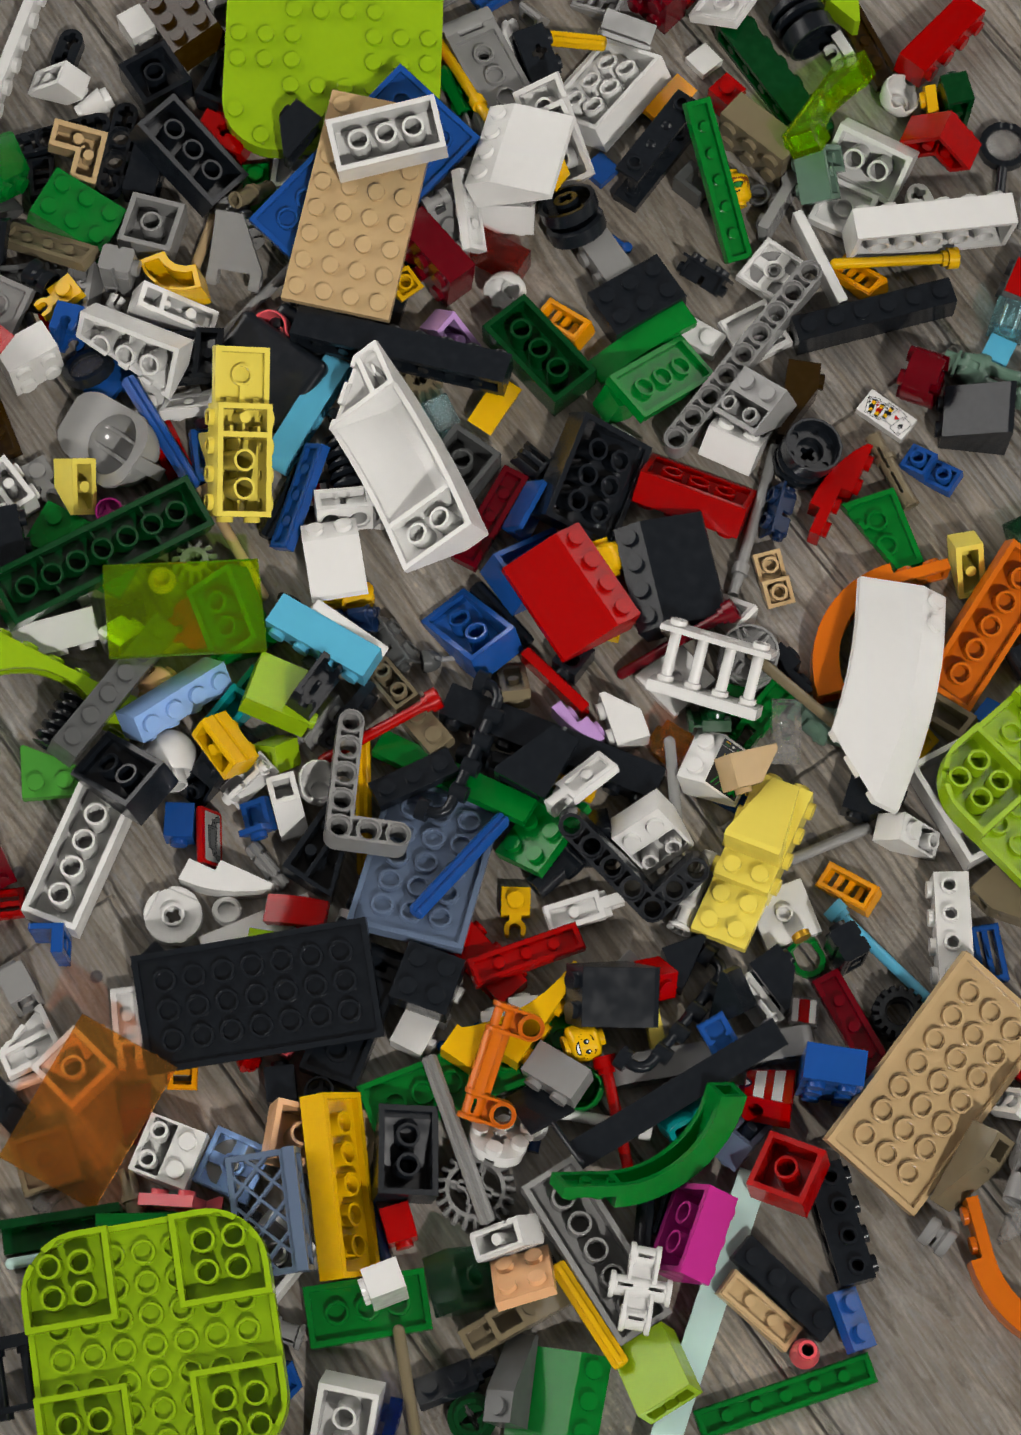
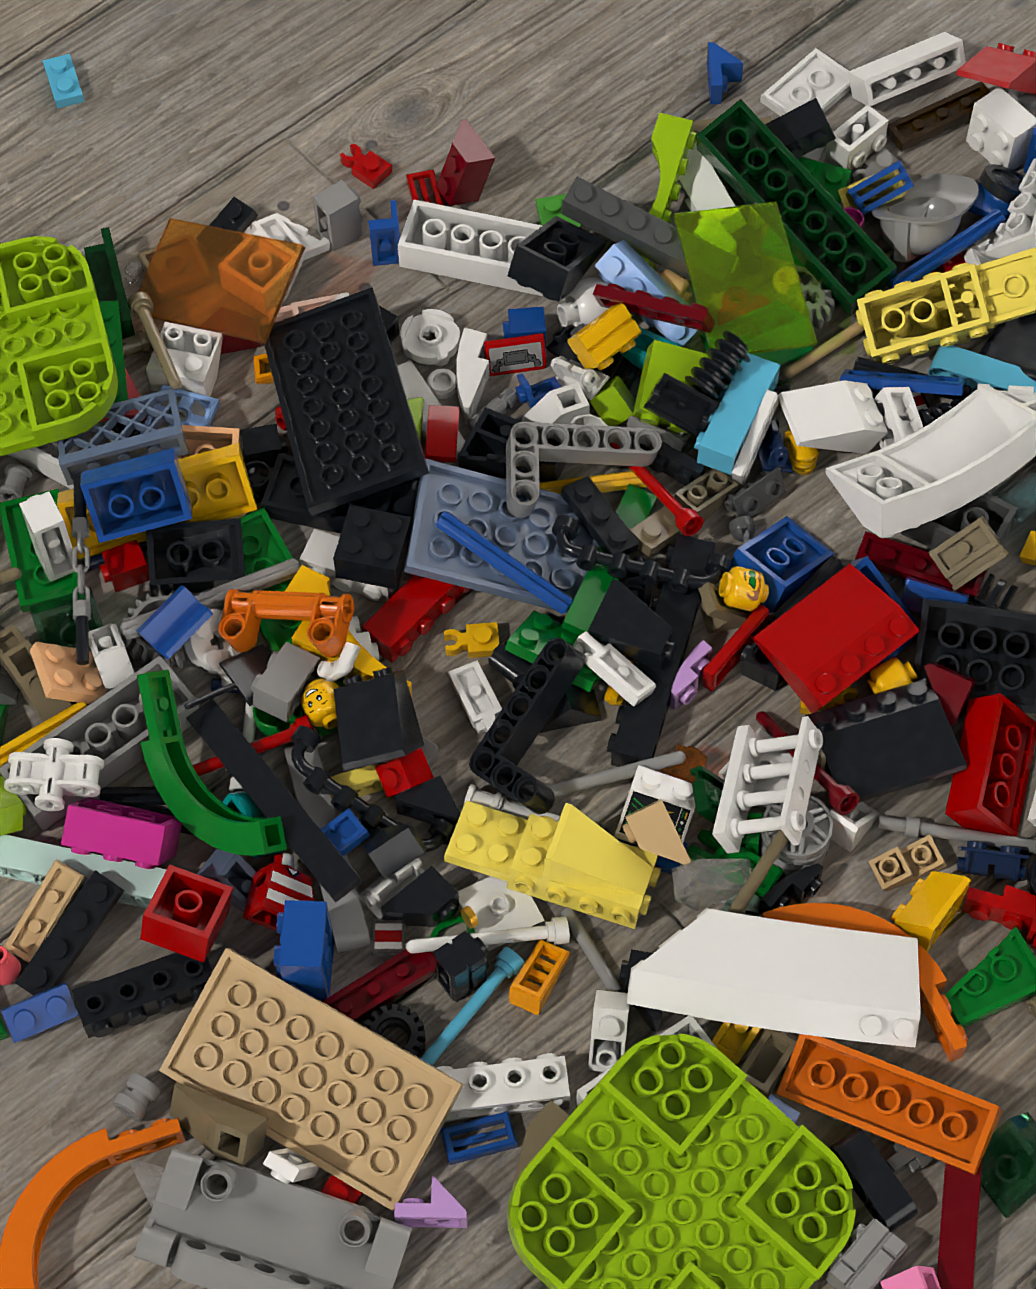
camera: 85 degrees right, 10 degrees down
(90, 473) = (860, 199): none -> blue tile
(102, 1191) = (142, 308): none -> dark tan piece
(161, 1200) = (136, 366): coral plate -> none
(213, 681) = (665, 309): none -> dark red plate
(285, 643) = (718, 365): none -> black piece
(356, 1193) = (136, 495): none -> blue brick
(464, 1258) = (81, 608): none -> piece
(492, 1168) = (174, 622): none -> blue panel
(500, 470) = (968, 553): none -> dark tan plate
(509, 663) = (743, 588): none -> yellow head
(525, 955) = (416, 642): red tile -> none
(554, 1020) = (340, 667): none -> white arm
(623, 509) = (951, 688): none -> dark red slope
(624, 723) = (699, 720): white slope -> none
(651, 832) = (572, 752): white slope -> none
(811, 869) = (553, 931): none -> white piece
(824, 564) = (931, 906): none -> yellow slope
(966, 561) = (974, 1071): light yellow slope -> none

